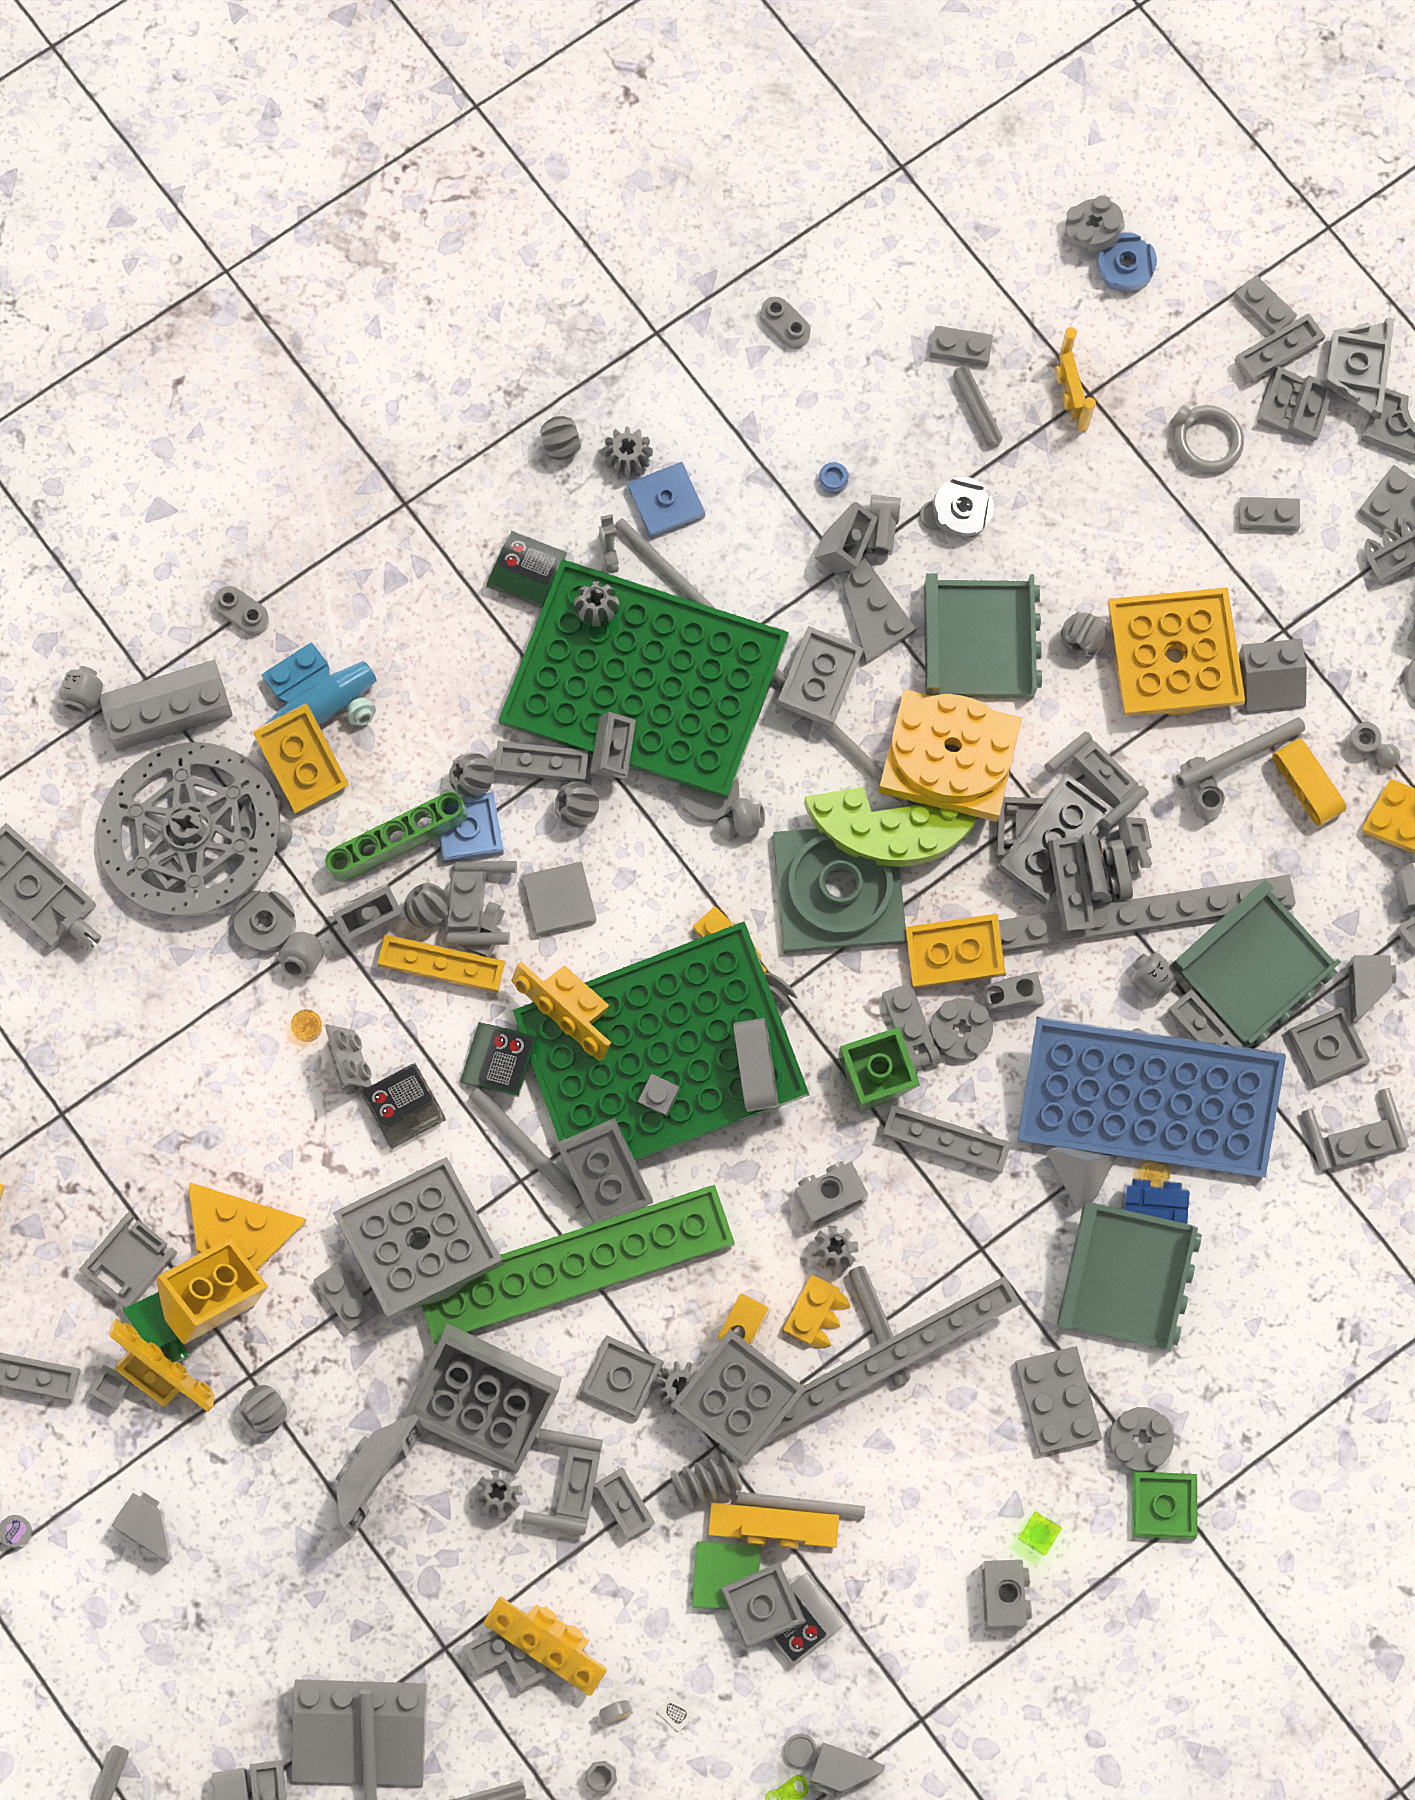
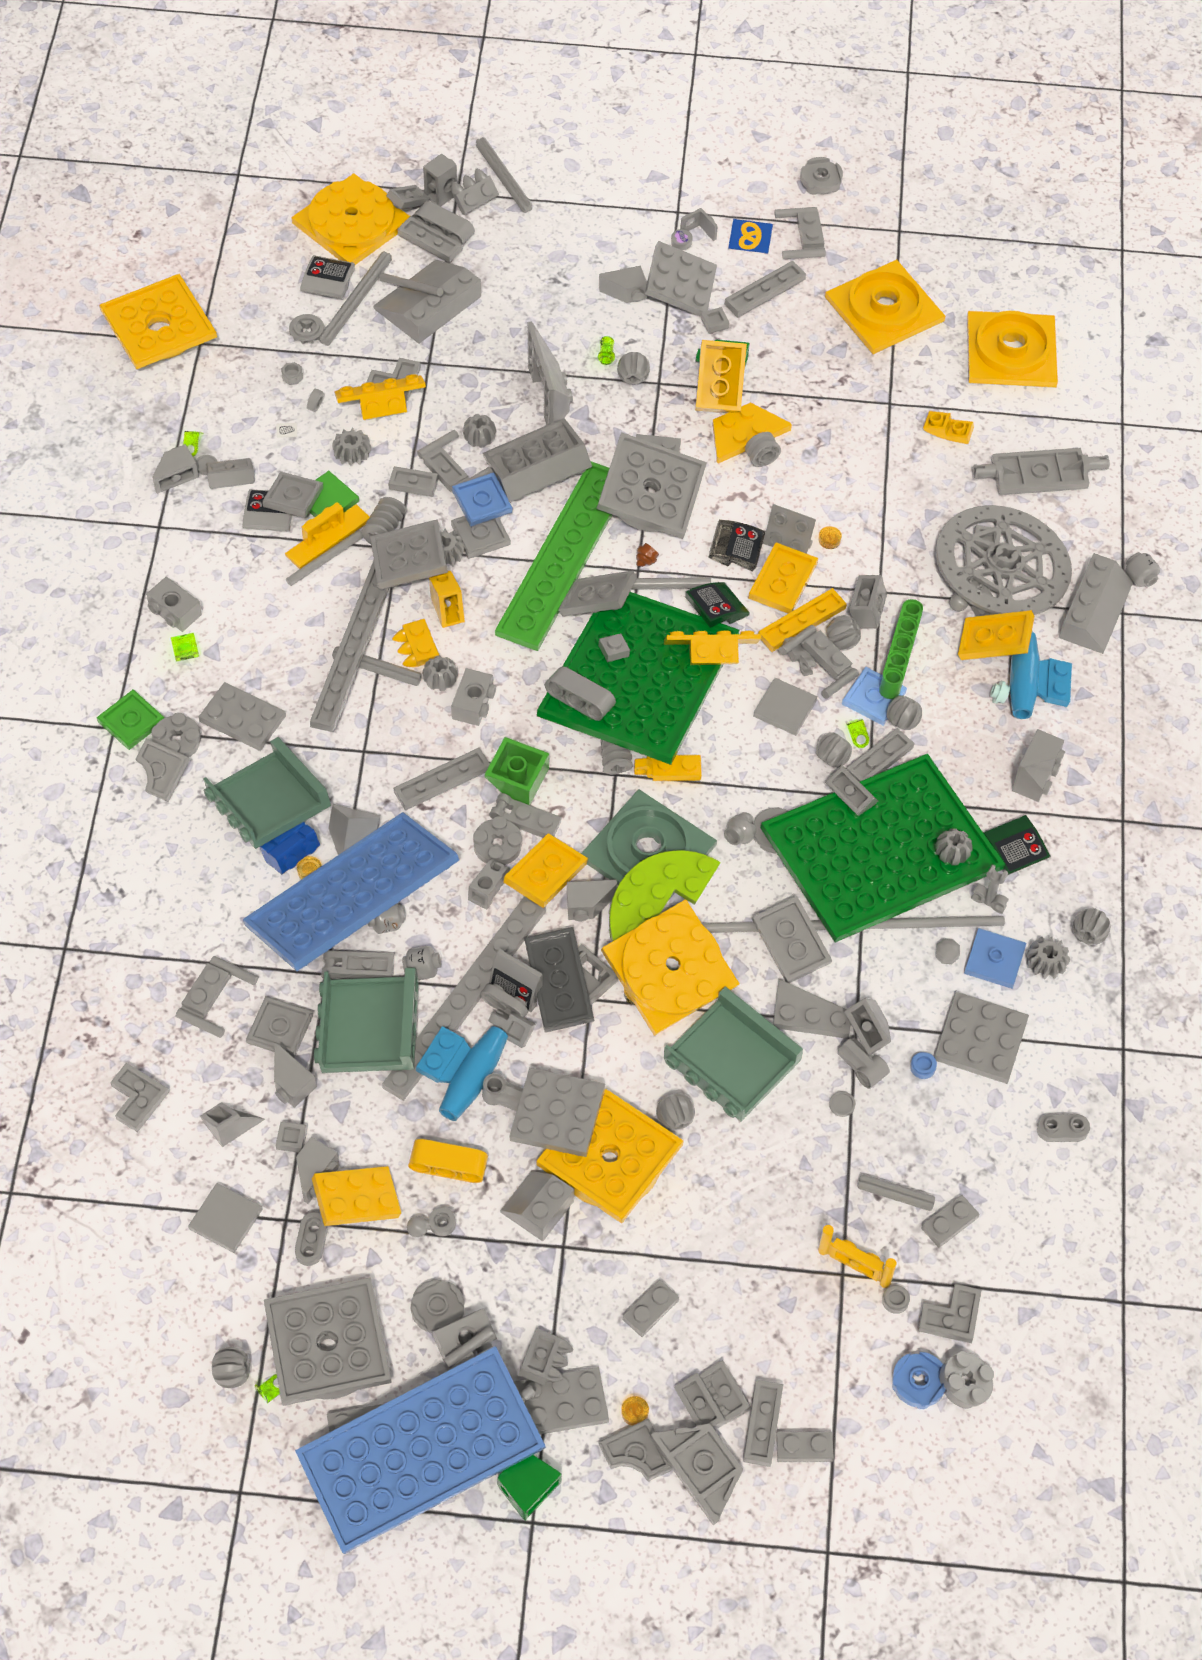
camera: 135 degrees right, 15 degrees down
(46, 1024) = (945, 427): none -> yellow slope
(86, 1469) = (680, 279): none -> light grey plate
(130, 1256) = (775, 378): light grey container -> none
(153, 1372) = (708, 330): yellow bracket -> none
(240, 609) = (1125, 687): light grey plate -> none
(257, 1177) = (763, 449): none -> light grey wheel
(259, 1465) = (606, 354): none -> clear neon green pin
(265, 938) = (912, 570): light grey plate -> none
(301, 954) = (873, 557): light grey head -> none
(405, 1024) = (783, 578): none -> yellow plate
(425, 606) = (1038, 765): none -> light grey slope
(499, 1182) = (646, 555): none -> dark orange plate
(525, 809) = (858, 728): none -> clear neon green piece
(587, 1403) = (482, 499): none -> medium blue plate
(652, 1606) = (351, 446): none -> light grey gear
(698, 543) = (947, 951): none -> light grey tile
(759, 451) = (981, 1037): none -> light grey plate
(789, 1711) = (230, 473): none -> light grey slope
(946, 889) = (588, 898): none -> light grey slope
(950, 518) = (831, 1132): plate -> none
(1046, 270) = (953, 1322): none -> light grey plate
(1071, 884) = (522, 951): light grey plate -> none
(1082, 332) = (896, 1299): none -> light grey tile
(1103, 773) = (573, 1046): light grey plate -> none
(1184, 419) = (767, 1309): light grey piece -> none
(1187, 719) = (557, 1112): none -> light grey plate
(1189, 1412) = (162, 767): none -> light grey tile
(1217, 846) = (464, 1068): none -> dark azure plate
(1240, 753) = (503, 1140): light grey piece -> none
(1364, 454) = (634, 1410): none -> clear yellow tile

